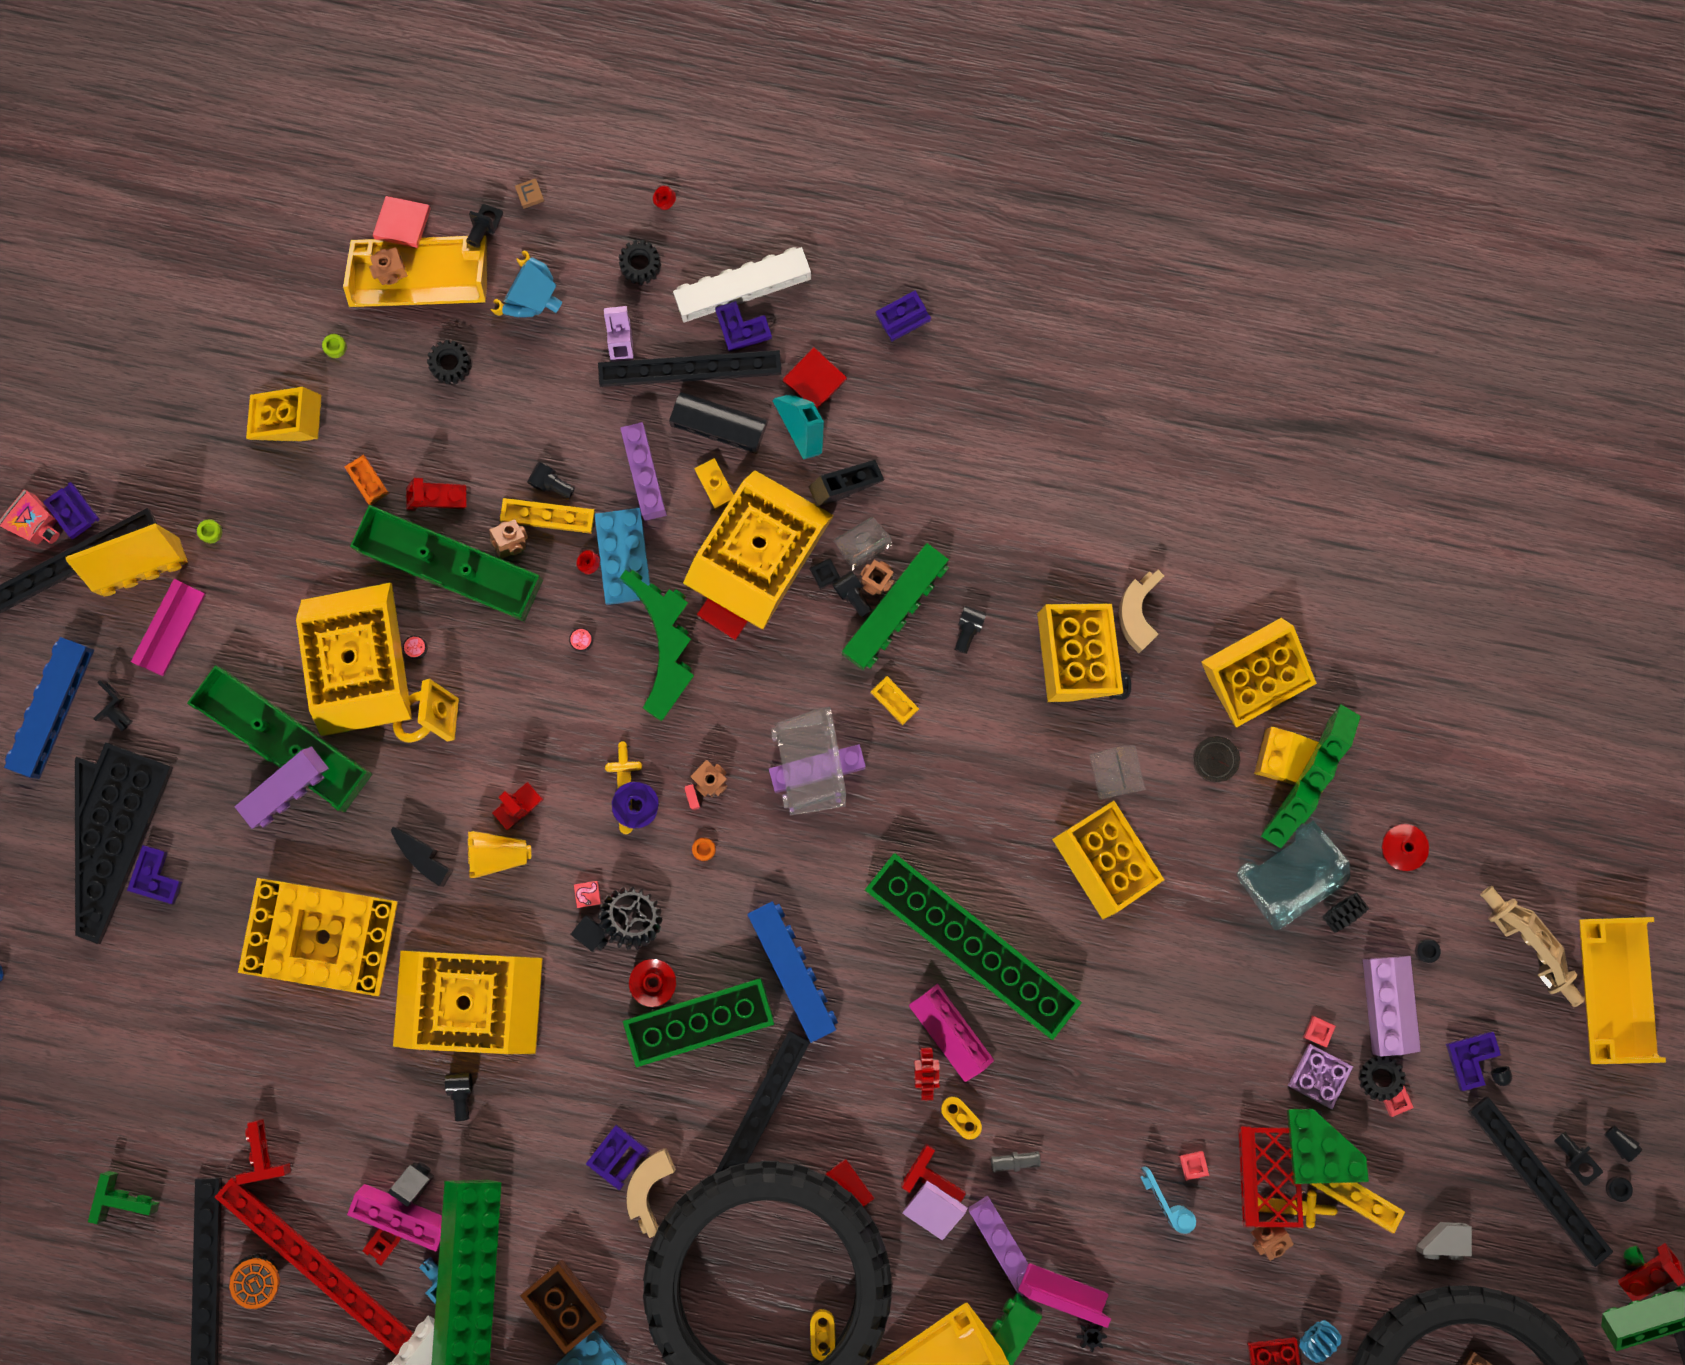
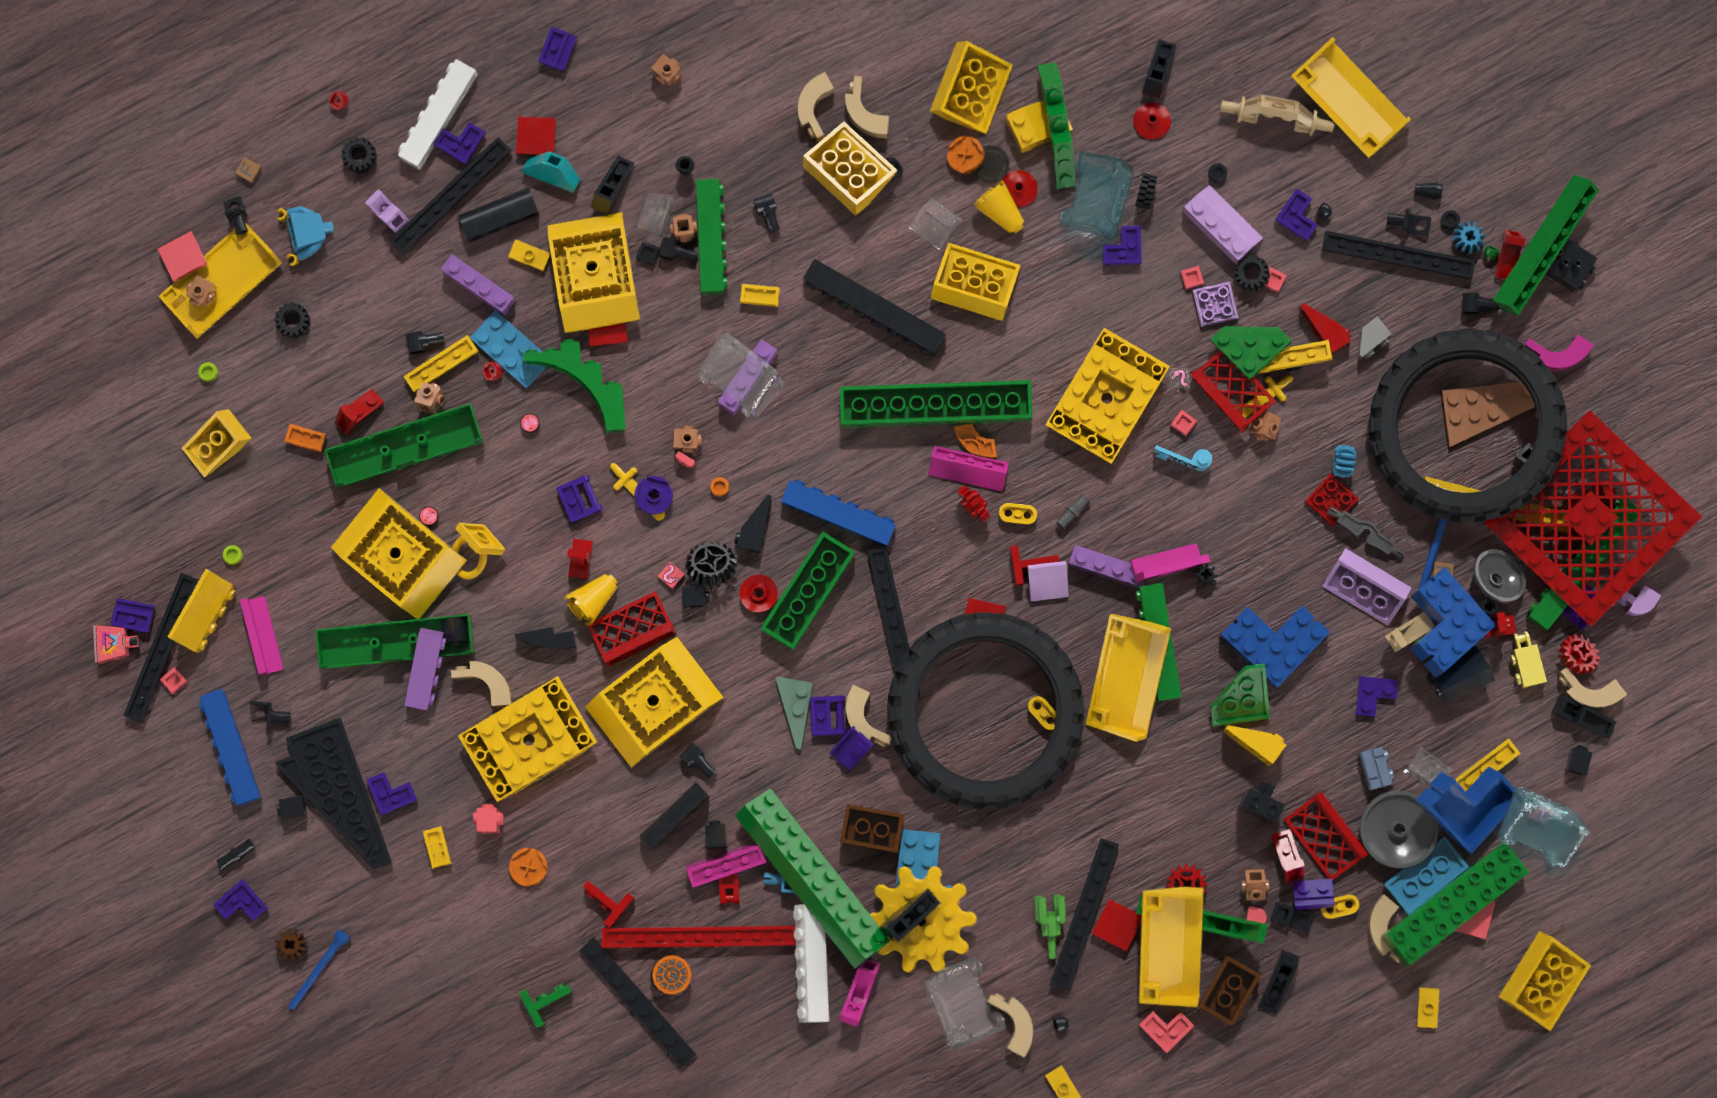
camera: 35 degrees left, 0 degrees up
(54, 812) = (292, 807): none -> black brick
(56, 601) = (173, 680): none -> coral tile
(151, 965) = (437, 847): none -> yellow plate
(216, 982) = (488, 819): none -> coral brick
(219, 1056) = (528, 867): none -> orange tile
(339, 849) = (499, 688): none -> tan arch
(341, 776) = (455, 630): none -> black brick
(390, 1128) = (674, 816): none -> black brick
(502, 933) = (636, 644): none -> red fence
(557, 746) = (573, 502): none -> dark purple plate
(600, 1115) = (796, 701): none -> sand green wing
(611, 1210) = (851, 748): none -> dark purple plate
(697, 919) = (753, 530): none -> black slope
(930, 516) = (682, 162): none -> black cone
(977, 1012) = (974, 442): none -> orange tile
(986, 418) = (663, 65): none -> nougat brick
(992, 804) = (874, 307): none -> black brick
(1106, 552) = (812, 93): none -> tan arch
(1177, 1082) = (1112, 369): none -> yellow slope
(1191, 810) = (1000, 208): none -> yellow cone
(1200, 731) = (965, 155): none -> orange tile
(1212, 805) = (1027, 193): none -> red dish
(1226, 1118) = (1179, 377): none -> tile
(1280, 954) = (1129, 252): none -> dark purple plate
(1409, 1193) = (1326, 328): none -> red slope
(1454, 805) = (1159, 69): none -> black slope
(1577, 1294) = (1474, 303): none -> black pin
(1617, 1220) = (1462, 234): none -> dark azure gear

